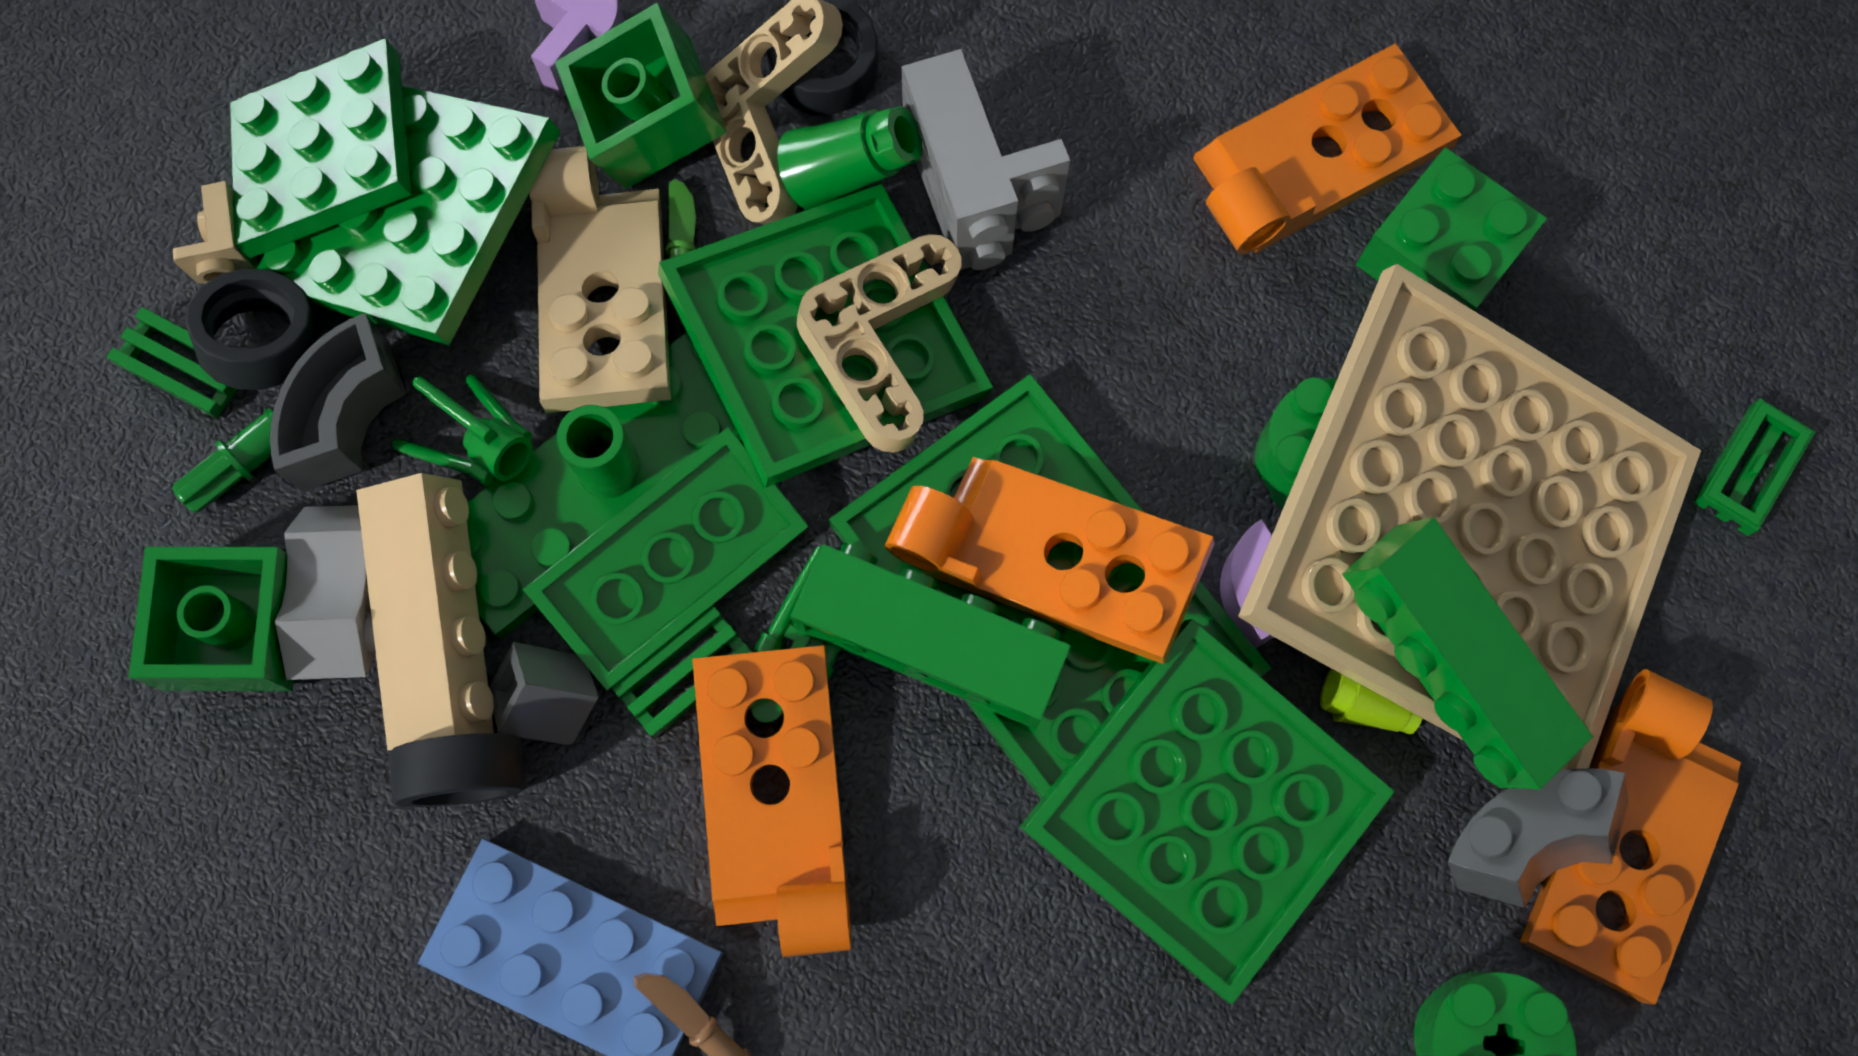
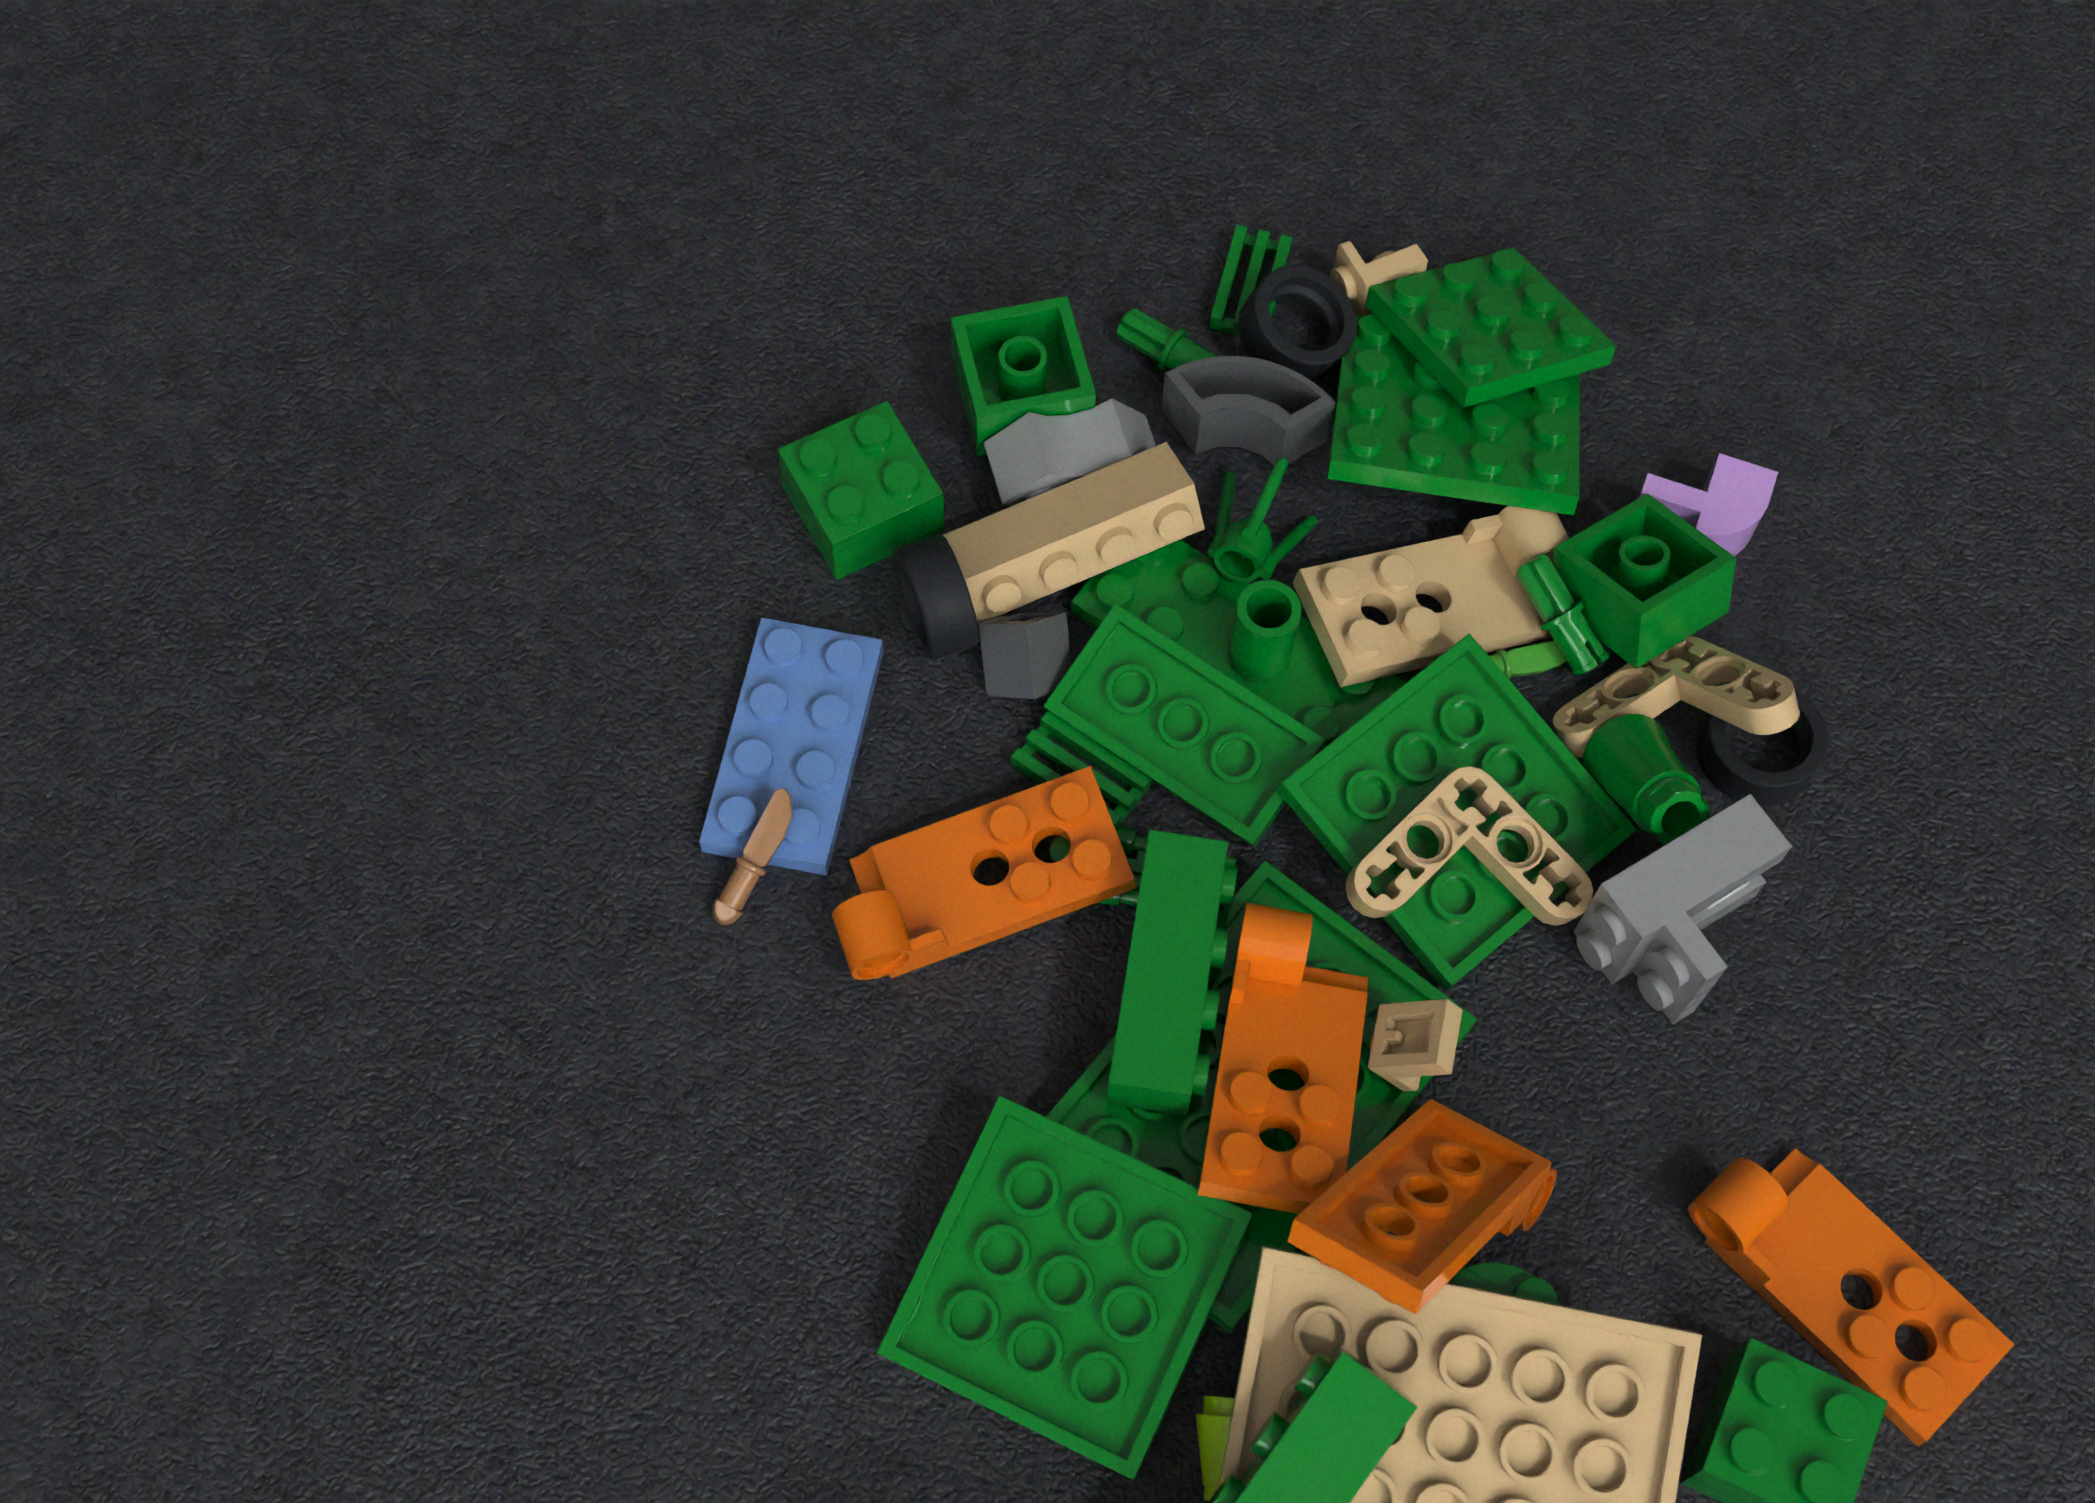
camera: 75 degrees right, 10 degrees down
(298, 822) = (861, 489): none -> green brick
(653, 179) = (1561, 614): none -> green axle
(1059, 428) = (1414, 1041): none -> tan bracket
(1194, 419) = (1474, 1189): none -> orange hinge

